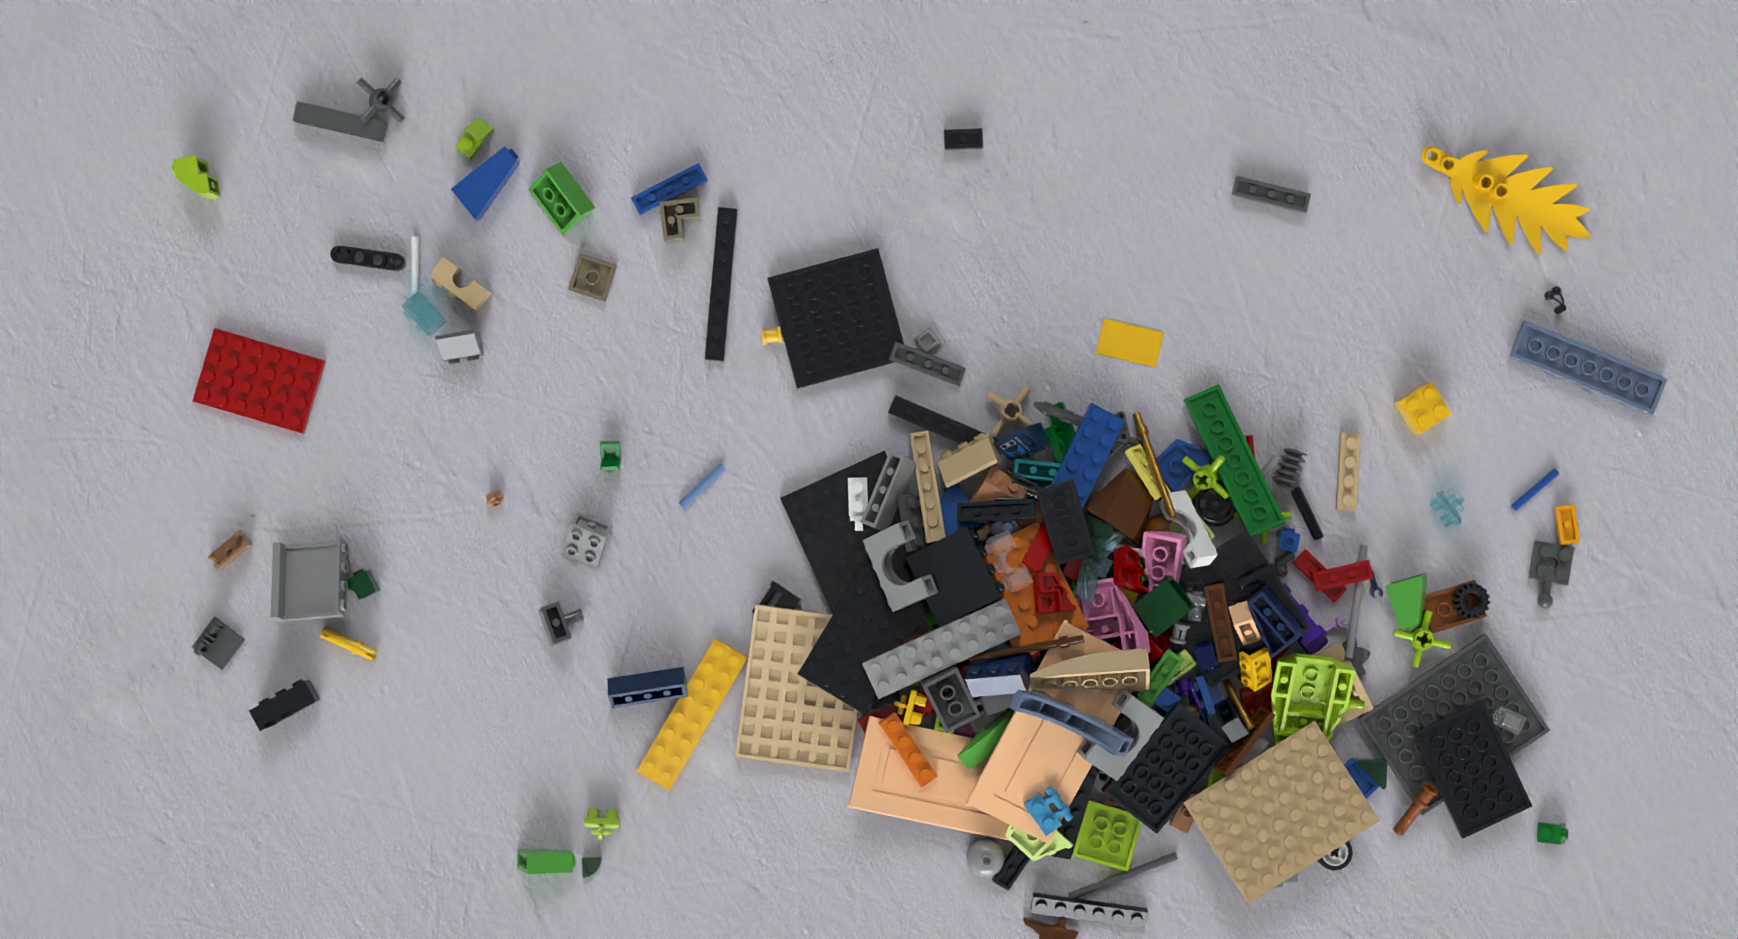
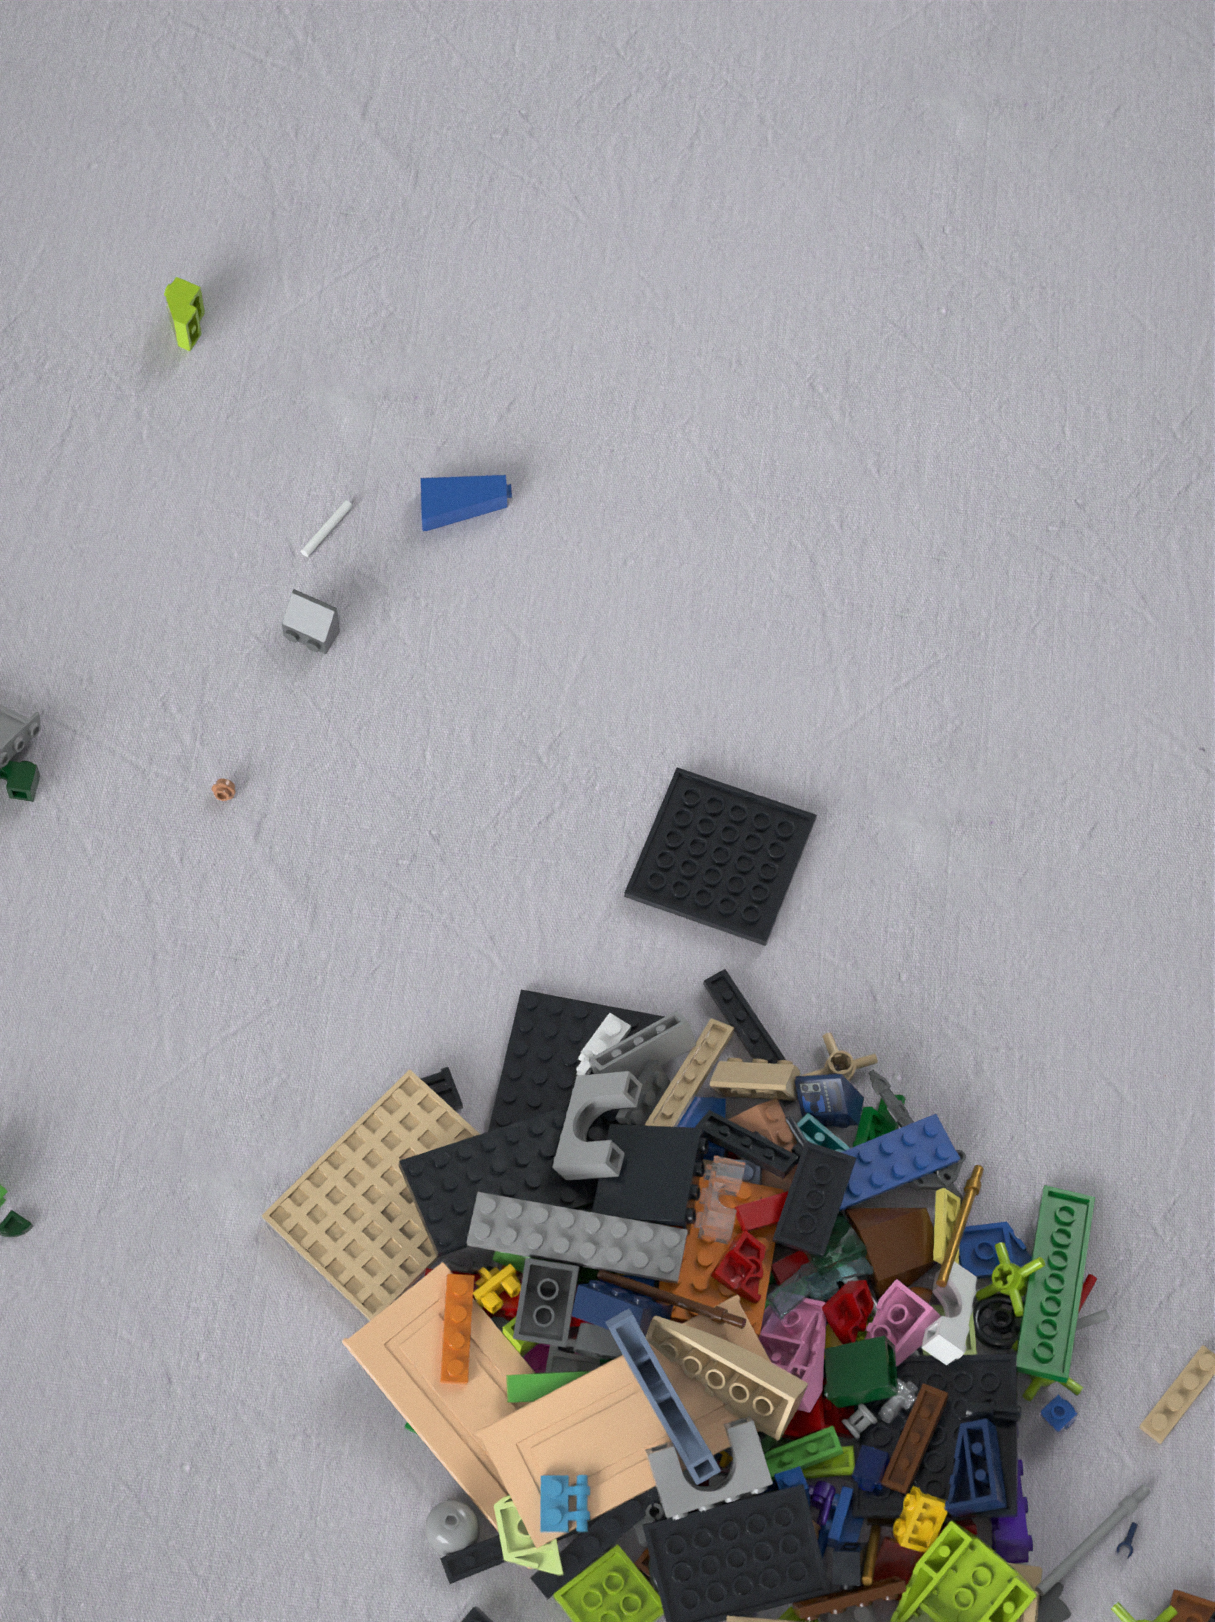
camera: 35 degrees right, 25 degrees down
(259, 380) = (85, 530): red plate -> none
(339, 121) = (362, 357): dark grey beam -> none
(368, 258) = (283, 494): black beam -> none
(376, 105) = (415, 355): dark grey bar -> none
(423, 313) = (298, 570): clear light blue brick -> none
(445, 275) = (361, 588): tan arch -> none
(474, 137) = (482, 454): lime slope -> none
(557, 623) = (187, 950): dark grey brick -> none
(561, 198) = (524, 560): bright green slope -> none
(586, 539) = (283, 892): light grey bracket -> none
(592, 277) = (495, 654): dark tan tile -> none
(594, 821) = (62, 1187): lime hips -> none
(610, 455) = (376, 827): green bracket -> none
(647, 687) = (227, 1078): dark blue brick -> none
(669, 189) = (640, 622): blue plate -> none
(674, 214) = (627, 646): dark tan brick -> none
(692, 714) = (250, 1145): yellow plate -> none
(702, 485) = (448, 923): medium blue bar -> none
(721, 284) = (622, 746): black plate -> none
(771, 335) = (637, 825): yellow bush -> none
(926, 363) = (783, 960): dark grey tile -> none
(927, 340) = (801, 942): light grey tile -> none
(963, 139) = (987, 772): black plate -> none
(1129, 342) = (1024, 1092): yellow sticker -> none
(1244, 623) = (940, 1456): light nougat slope -> none
(1281, 563) = (1034, 1440): dark grey arm -> none
(1289, 468) = (1113, 1338): dark grey piece -> none
(1307, 513) = (1101, 1406): black axle -> none
(1308, 564) = (1069, 1486): red tile -> none
(1336, 624) = (1050, 1554): lavender hand -> none
(1342, 575) = (1096, 1498): red tile -> none
(1408, 600) = (1157, 1579): bright green slope -> none

